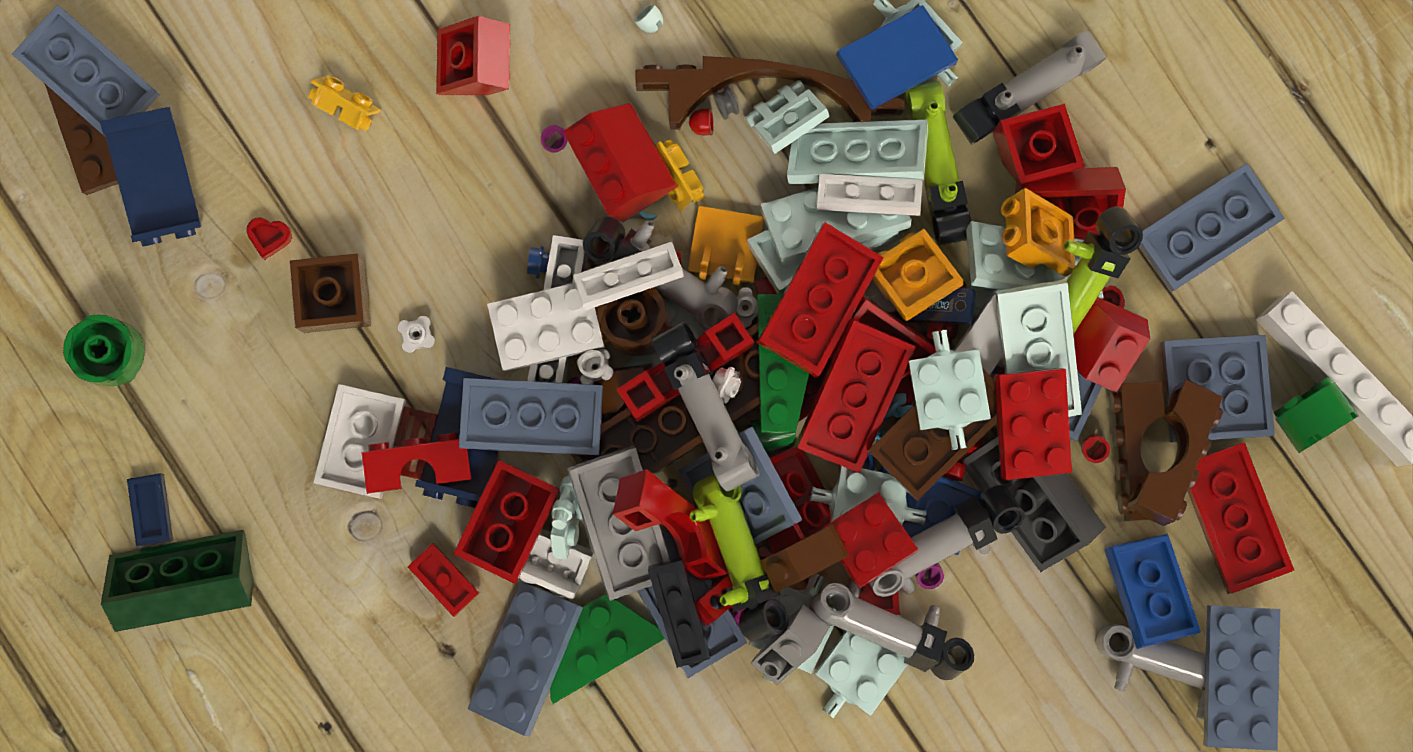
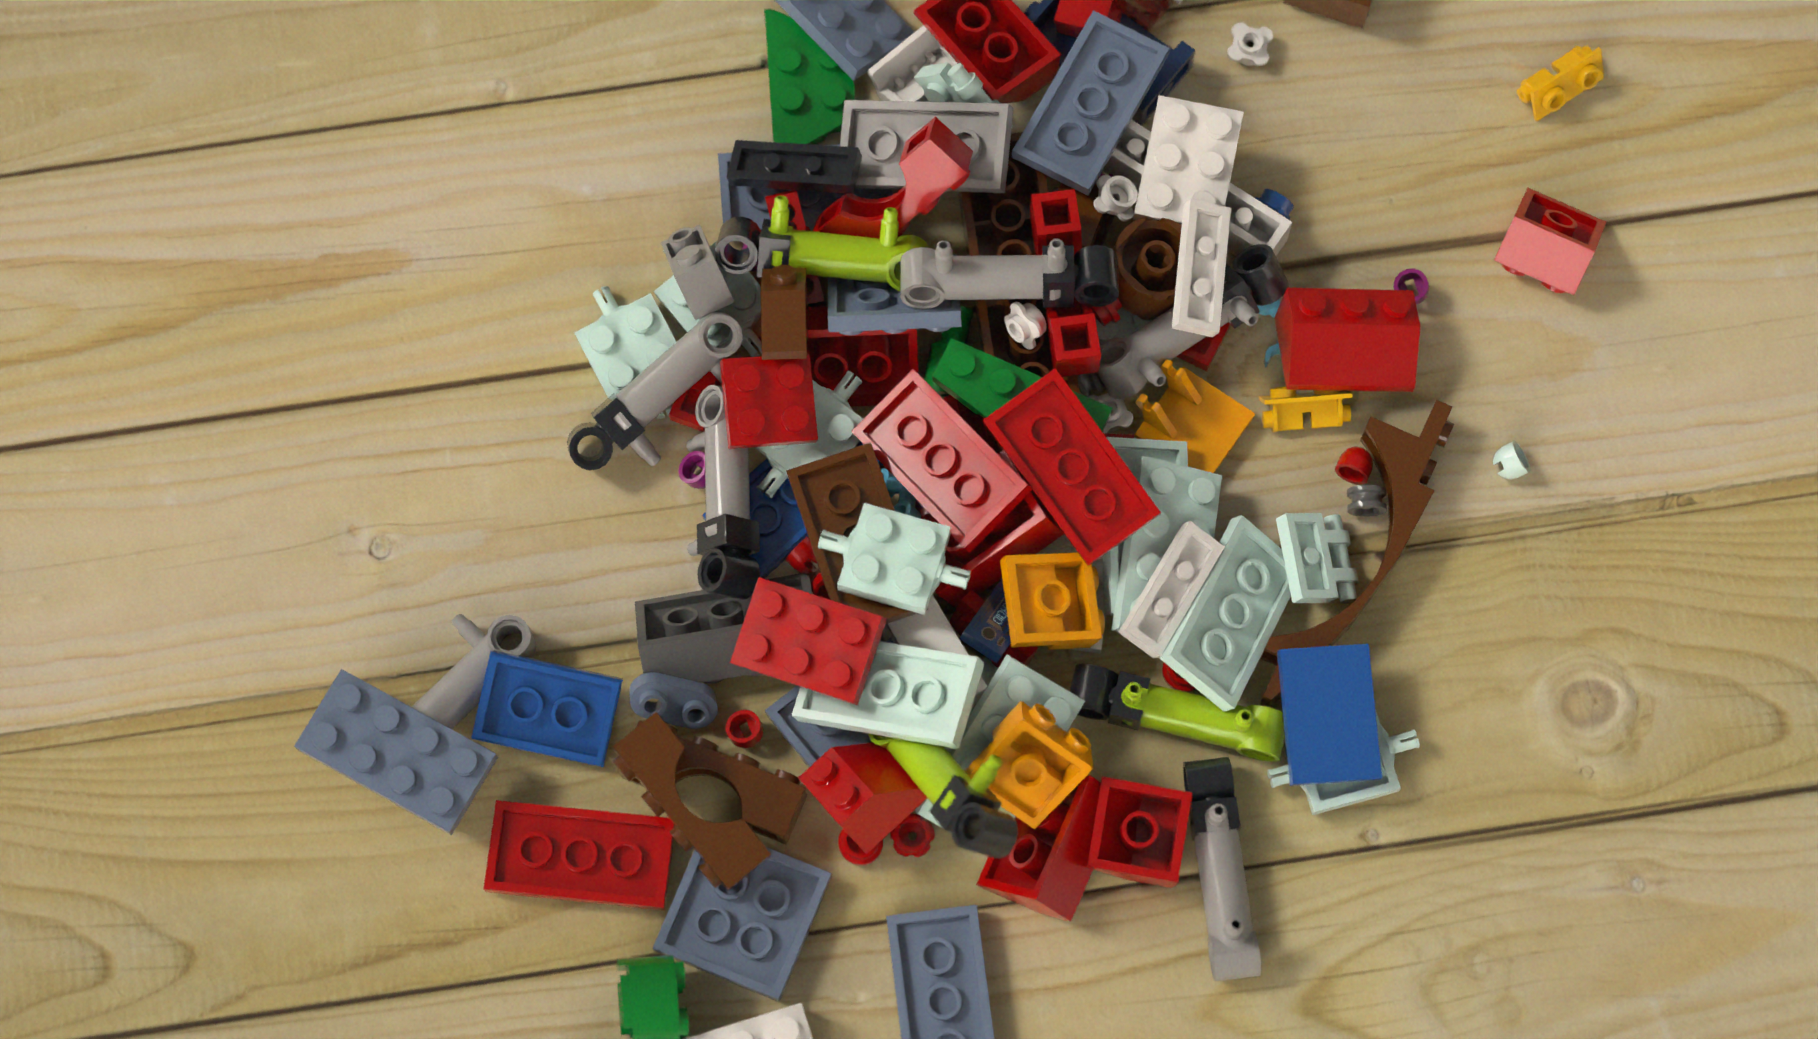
camera: 120 degrees right, 10 degrees down
(1103, 506) = (675, 699): none -> sand blue plate

